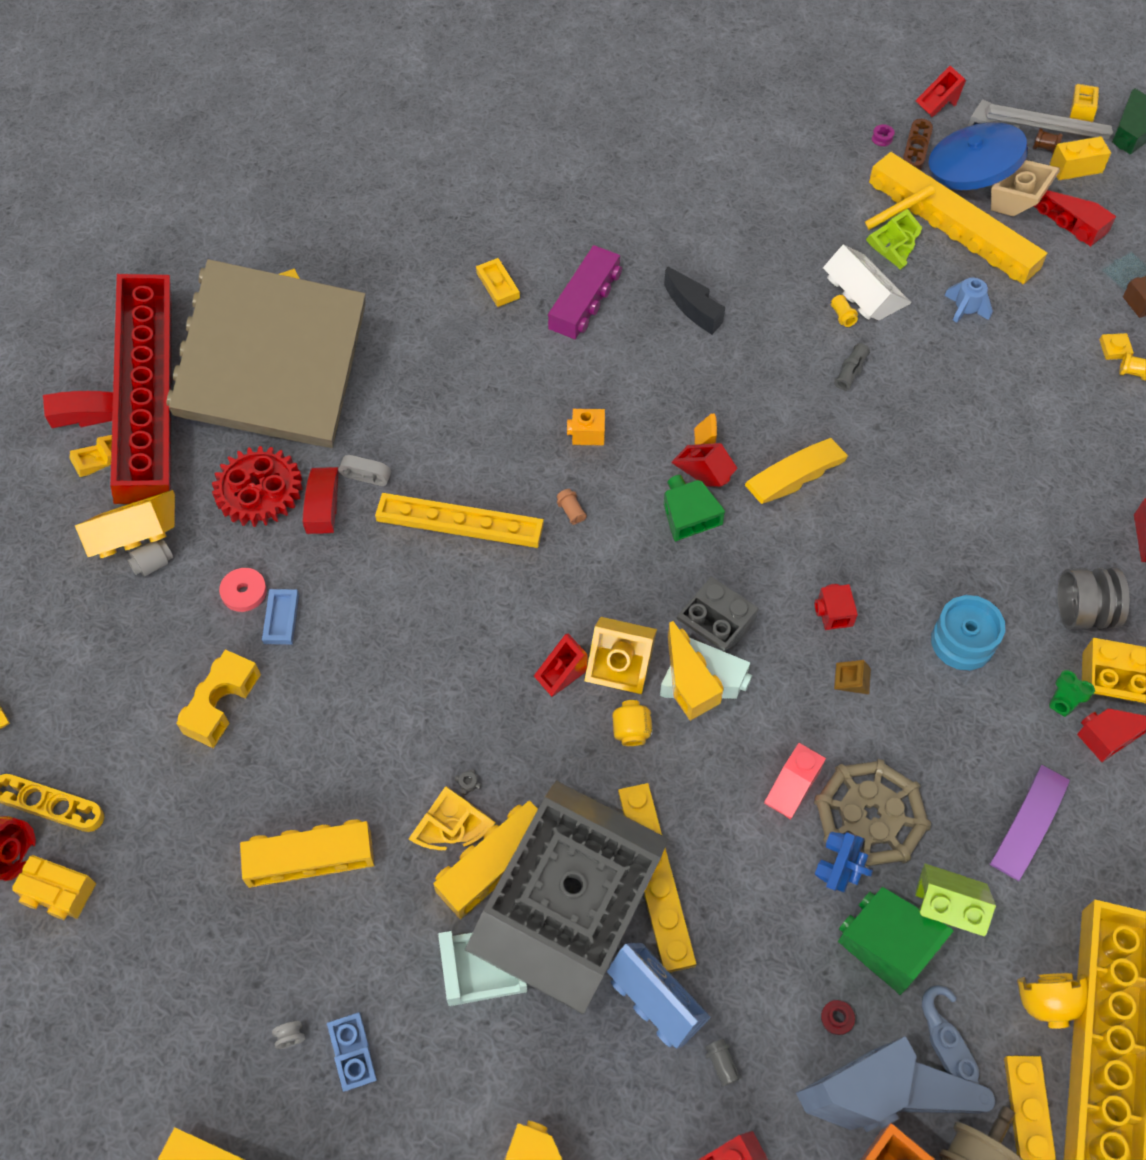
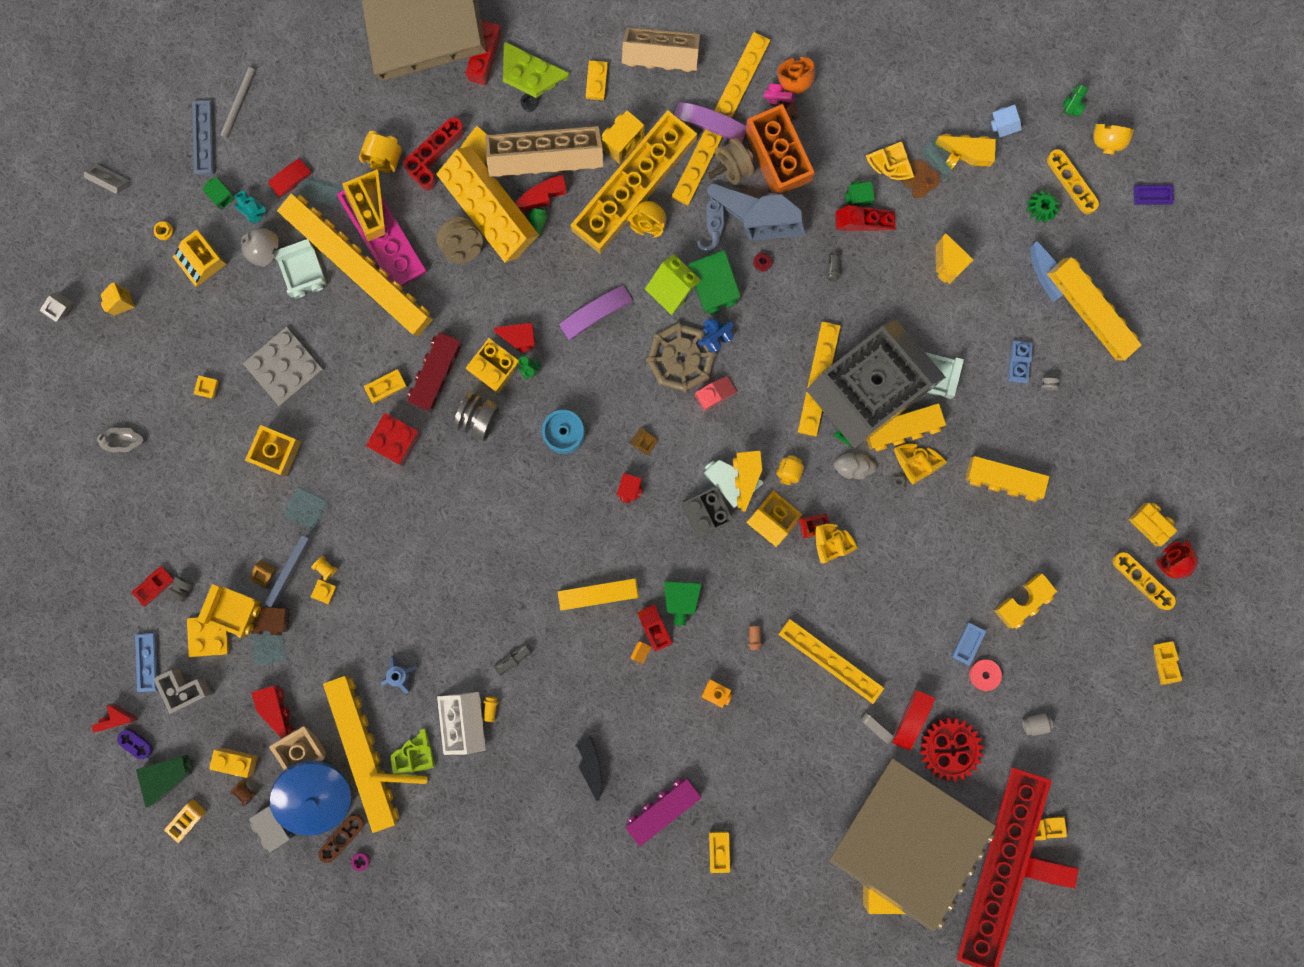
camera: 150 degrees left, 25 degrees up
(128, 525) = (1045, 753): yellow slope -> none
(525, 657) = (833, 542): none -> yellow brick
(539, 774) = (855, 466): none -> light grey arm
(656, 995) = (850, 312): medium blue slope -> none
(943, 90) = (291, 879): red slope -> none
(1048, 121) = (235, 805): light grey axle -> none

